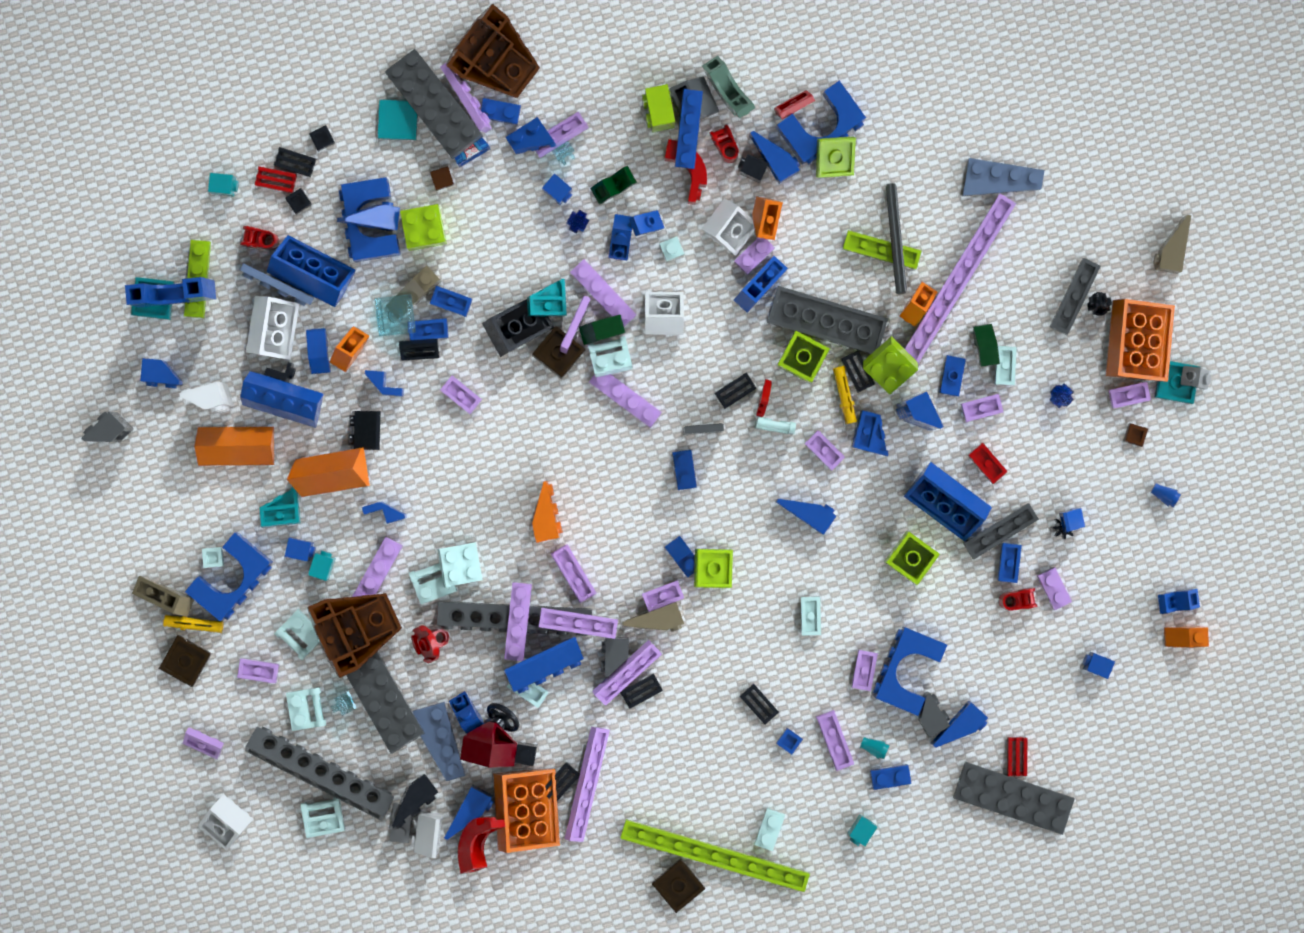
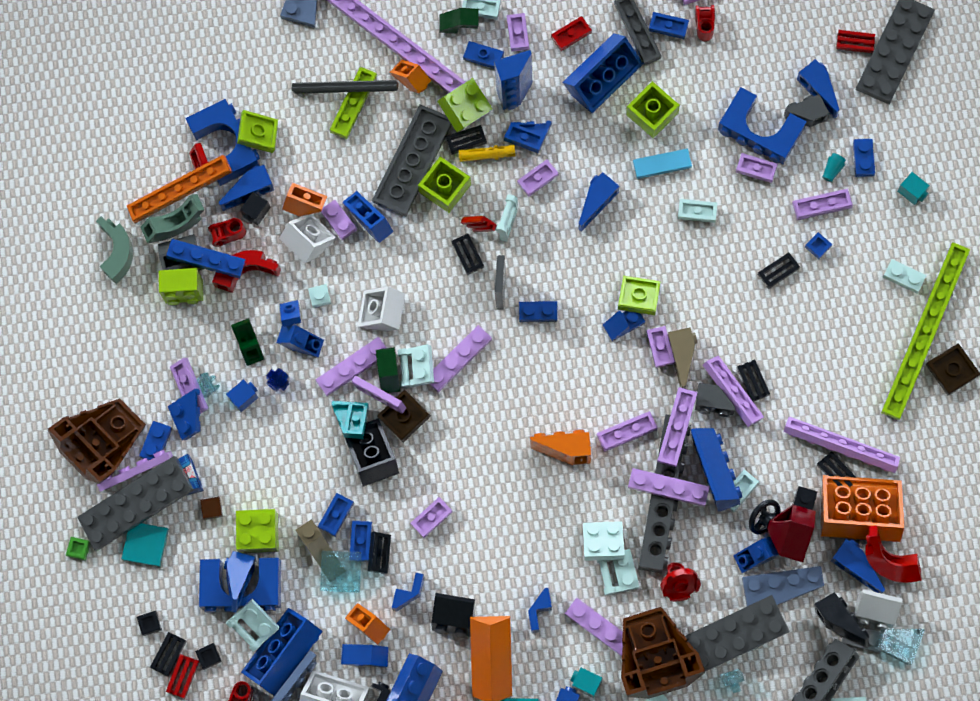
camera: 75 degrees left, 15 degrees down
(335, 243) = (257, 620): none -> light aqua plate
(384, 55) = (78, 548): none -> bright green tile
(400, 859) = (900, 643): none -> clear light blue wing
(691, 41) = (122, 255): none -> sand green arch
(763, 88) = (179, 188): none -> orange tile
(857, 574) = (662, 163): none -> medium azure tile

